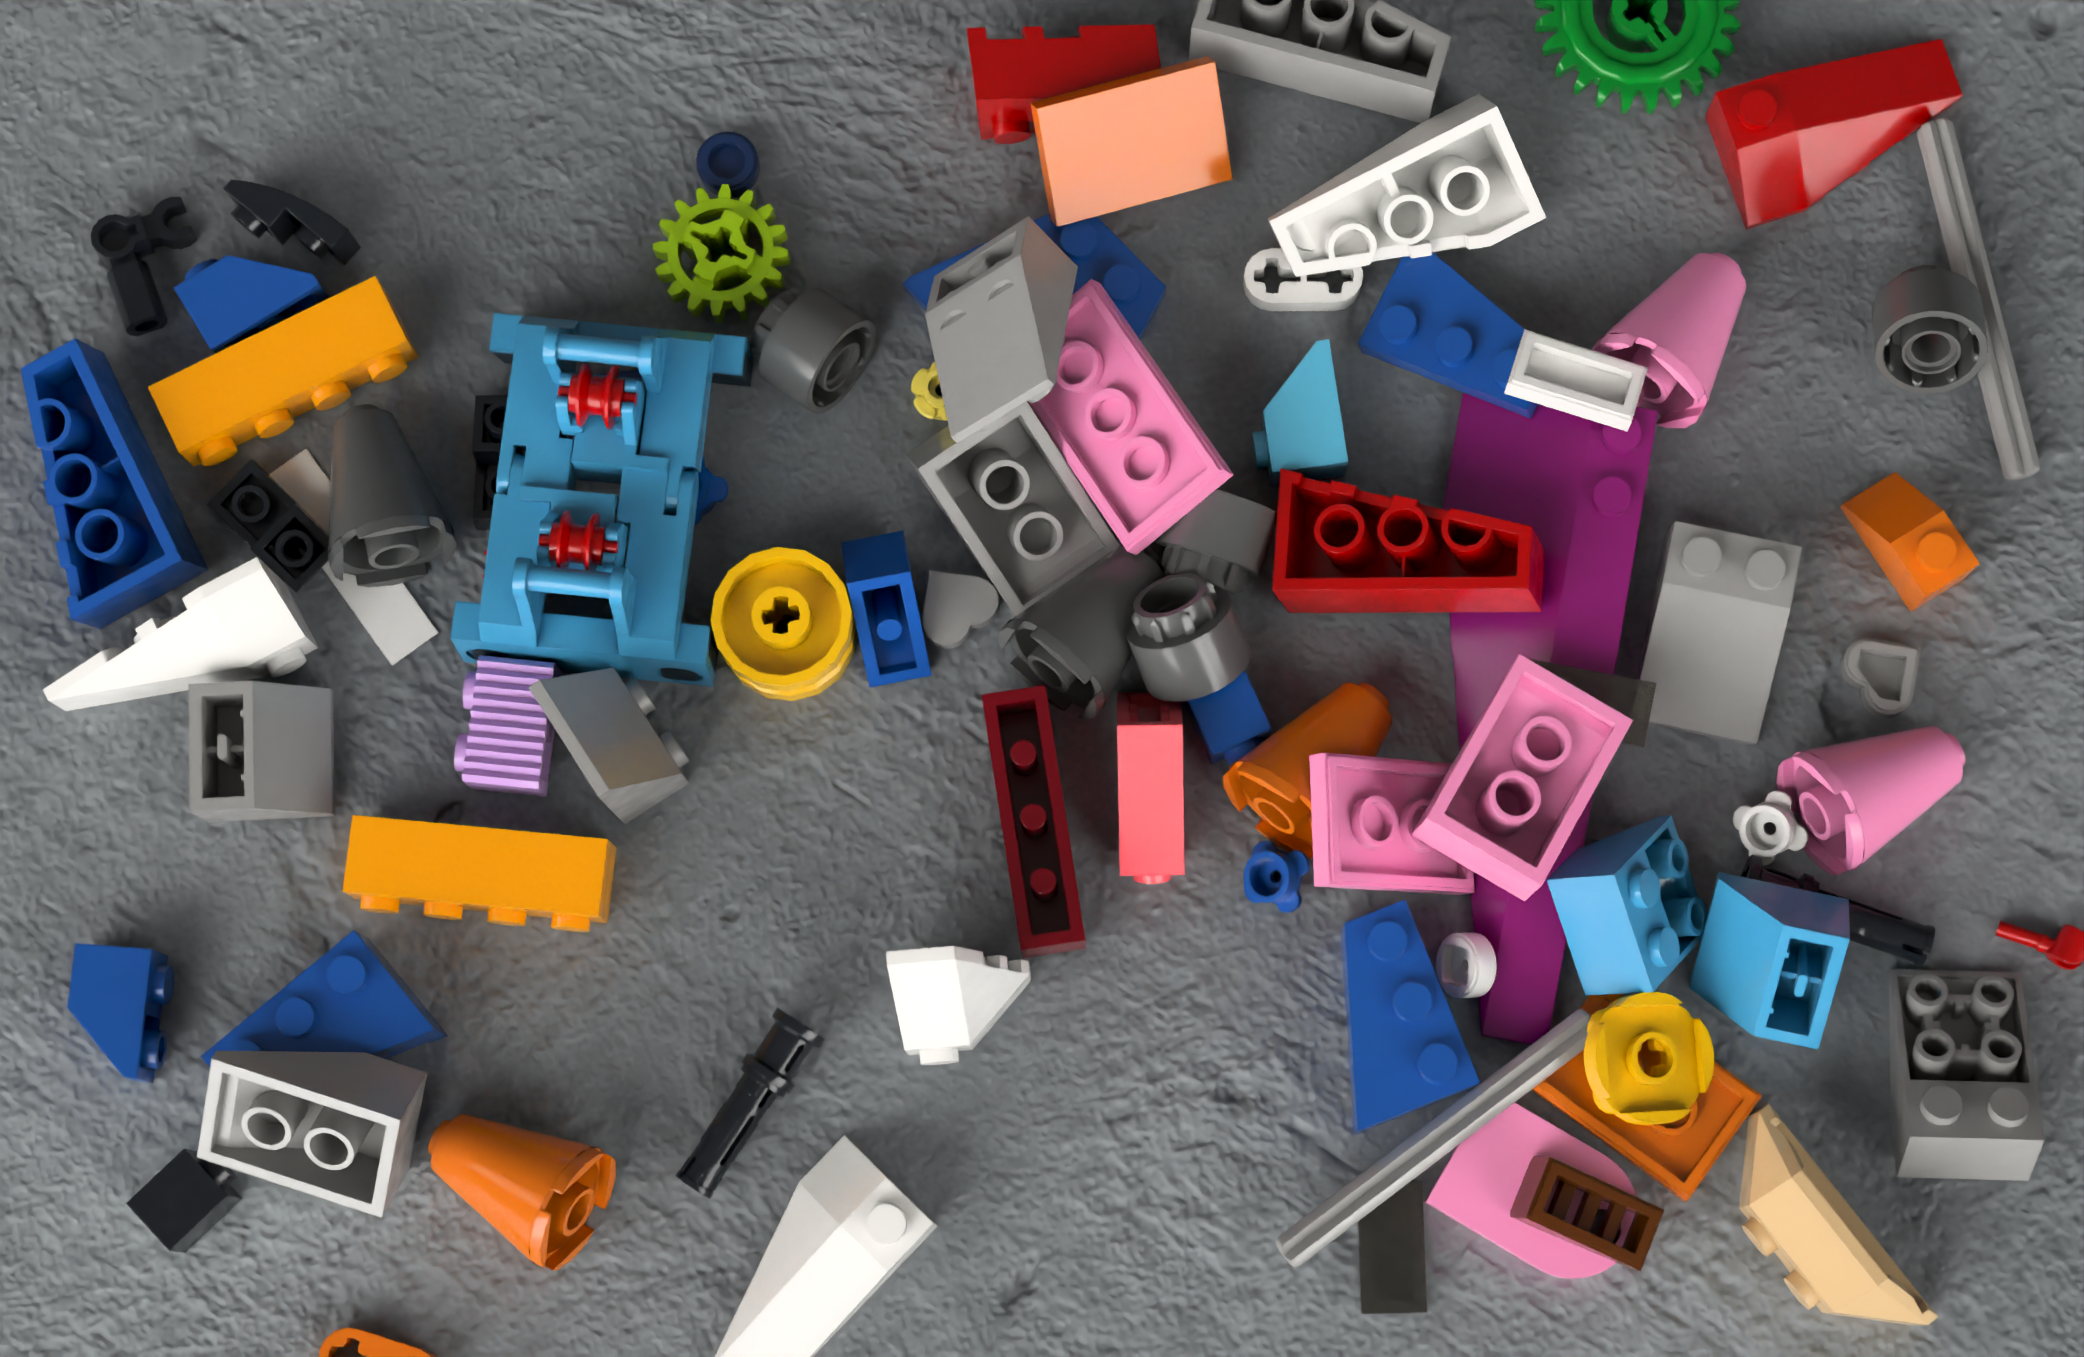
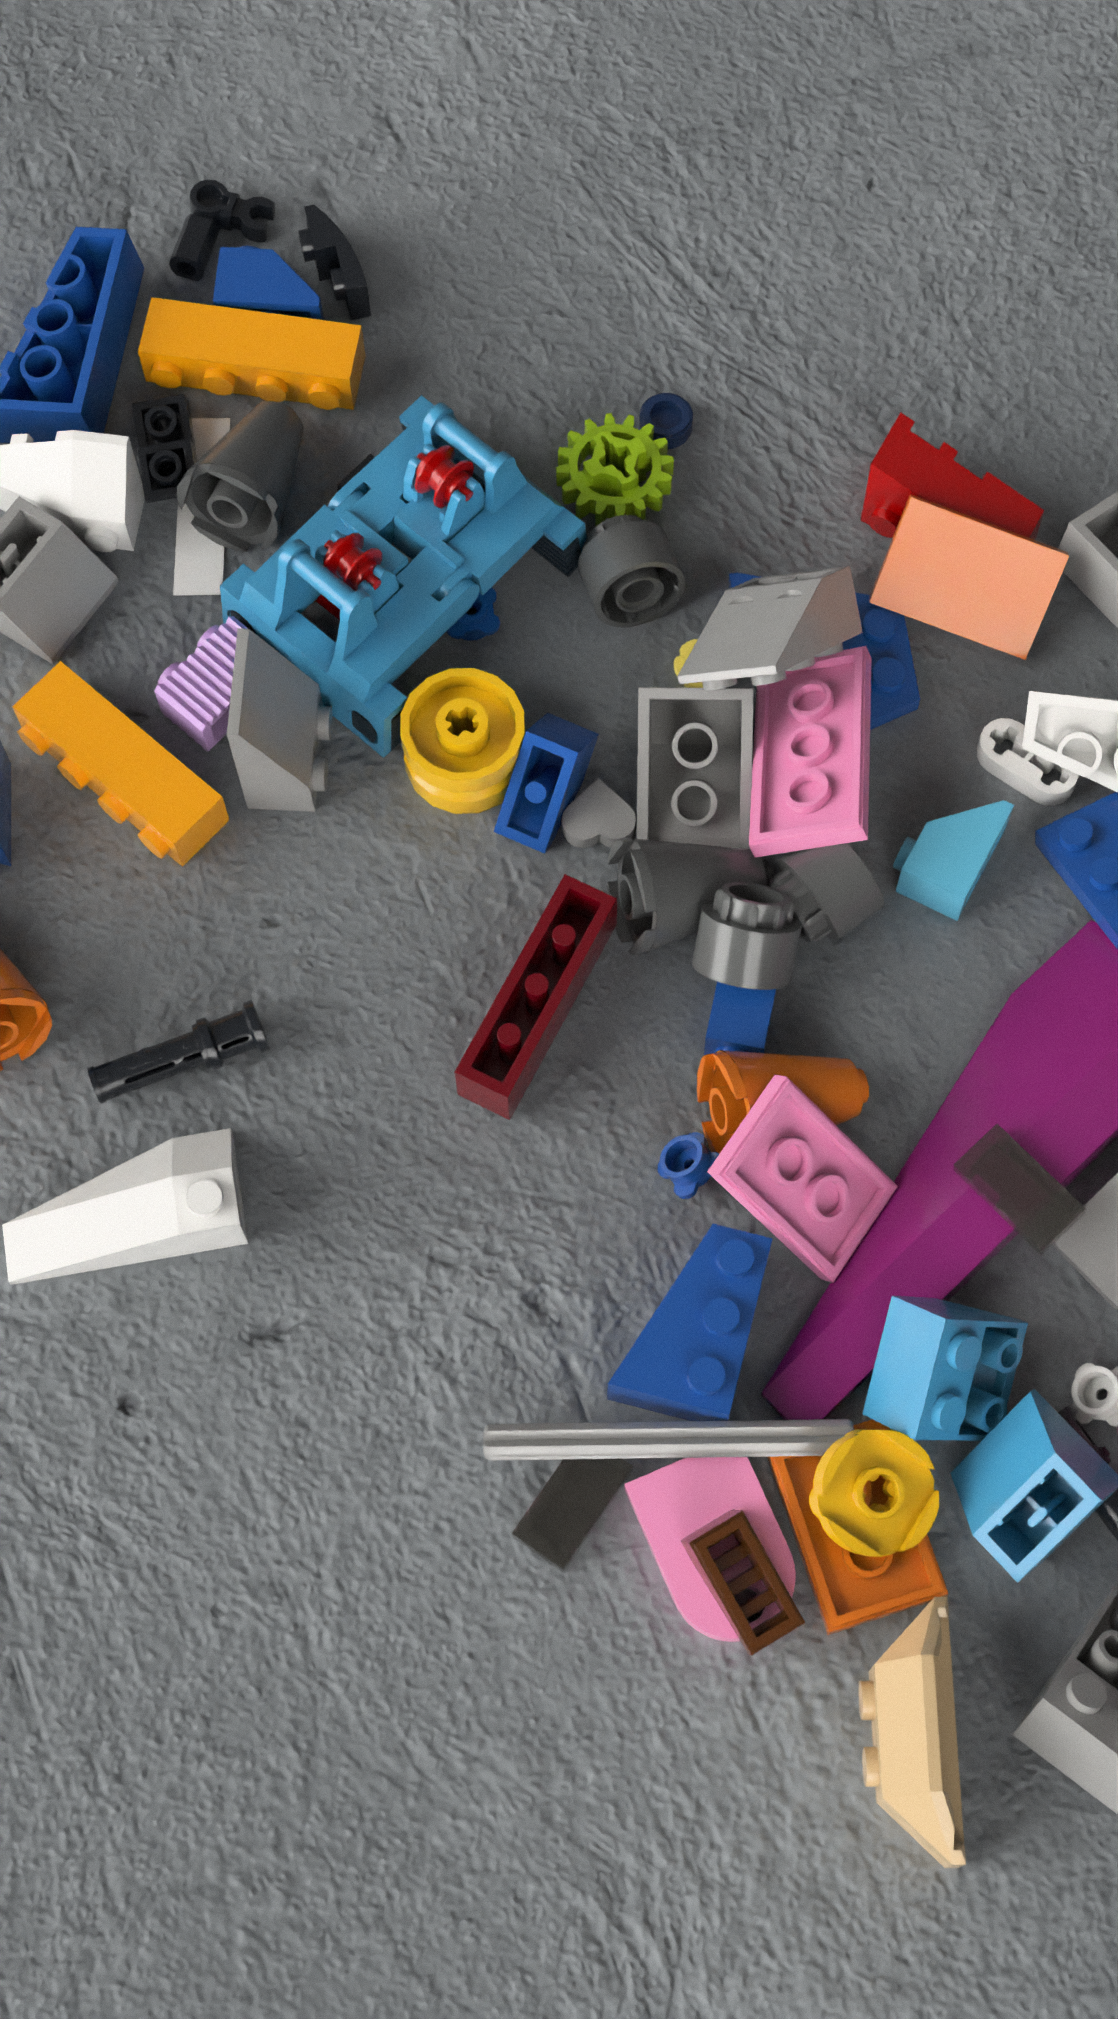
camera: 30 degrees right, 10 degrees down
(951, 997) = (373, 1068): white wedge -> none
(1150, 787) = (642, 1032): coral slope -> none
(1393, 555) = (953, 989): red wedge -> none
(1466, 965) = (786, 1328): white tile -> none
(1522, 778) = (927, 1206): bright pink slope -> none

